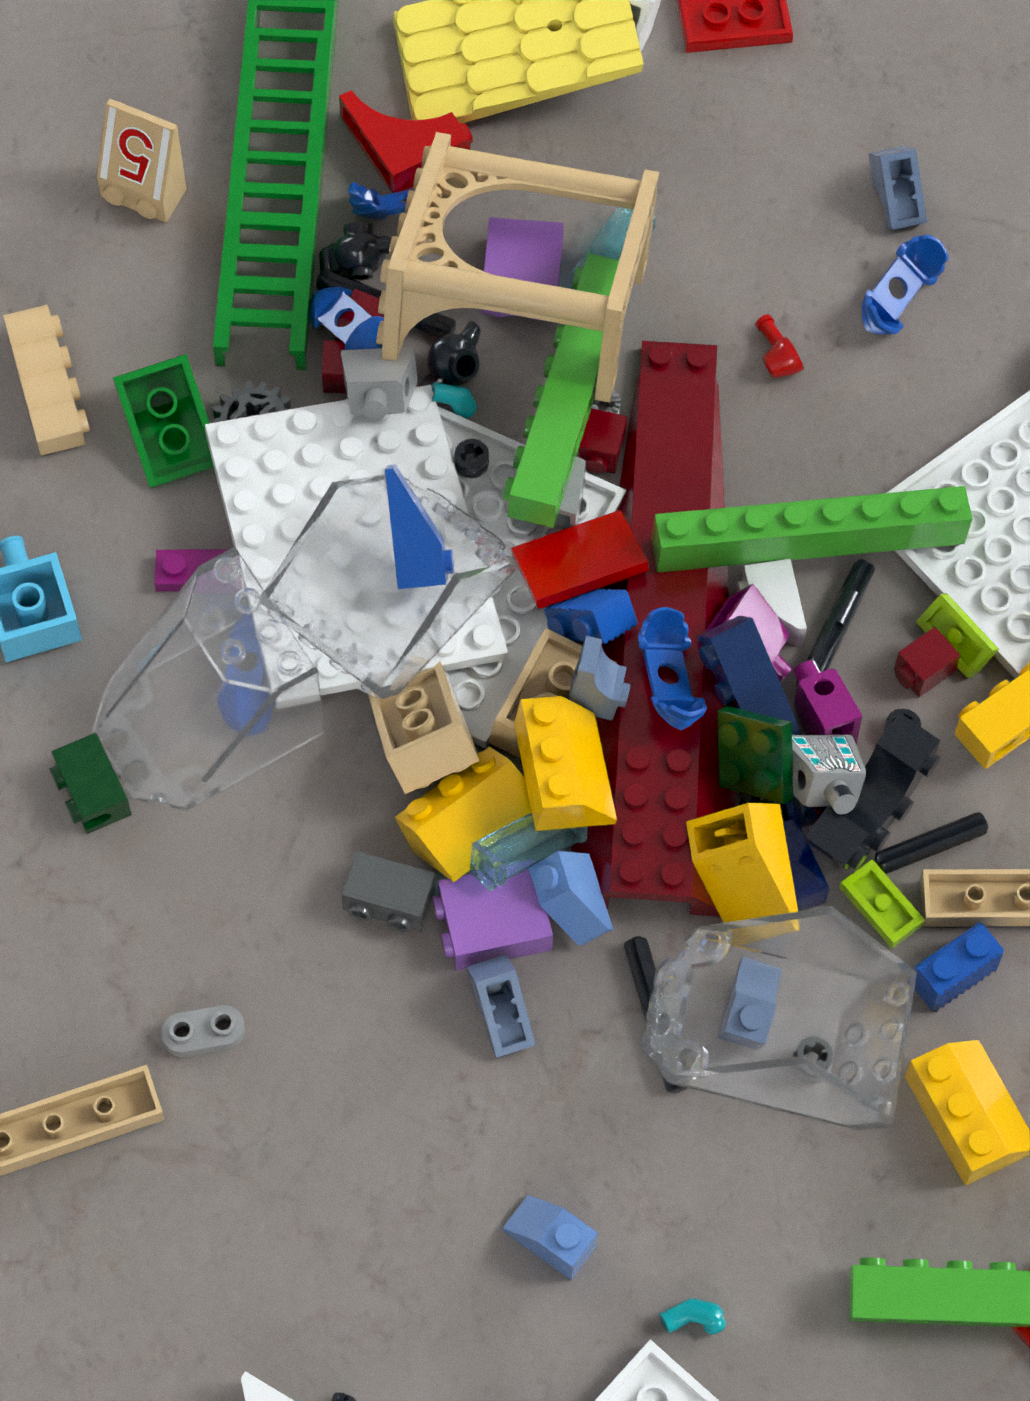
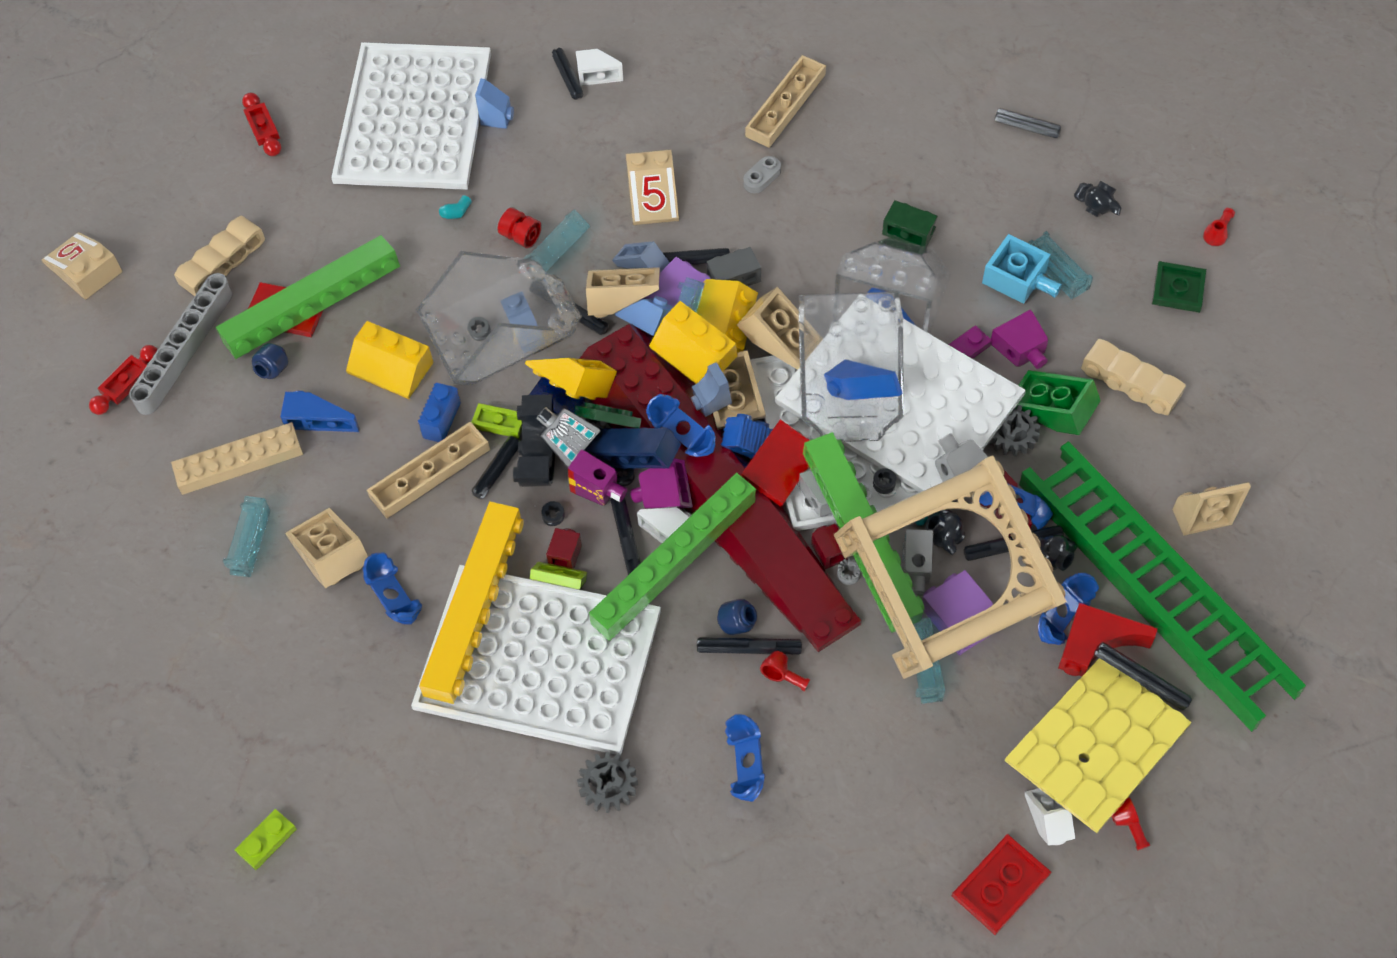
camera: 145 degrees right, 5 degrees down
(121, 519) = (1021, 340): none -> magenta torso
(381, 1121) = (652, 187): none -> tan slope
(402, 71) = (1143, 675): none -> black axle
(417, 963) = (696, 256): none -> black axle
(517, 352) = (918, 558): none -> light grey torso
(552, 1235) = (540, 194): medium blue slope -> none
(574, 951) = (615, 289): none -> tan slope
(595, 1123) = (559, 240): none -> clear light blue container
(634, 1205) = (518, 227): none -> red wheel
(785, 433) = (737, 616): none -> dark blue head
(793, 404) = (749, 645): none -> black axle
(899, 186) = (801, 825): sand blue arch -> none

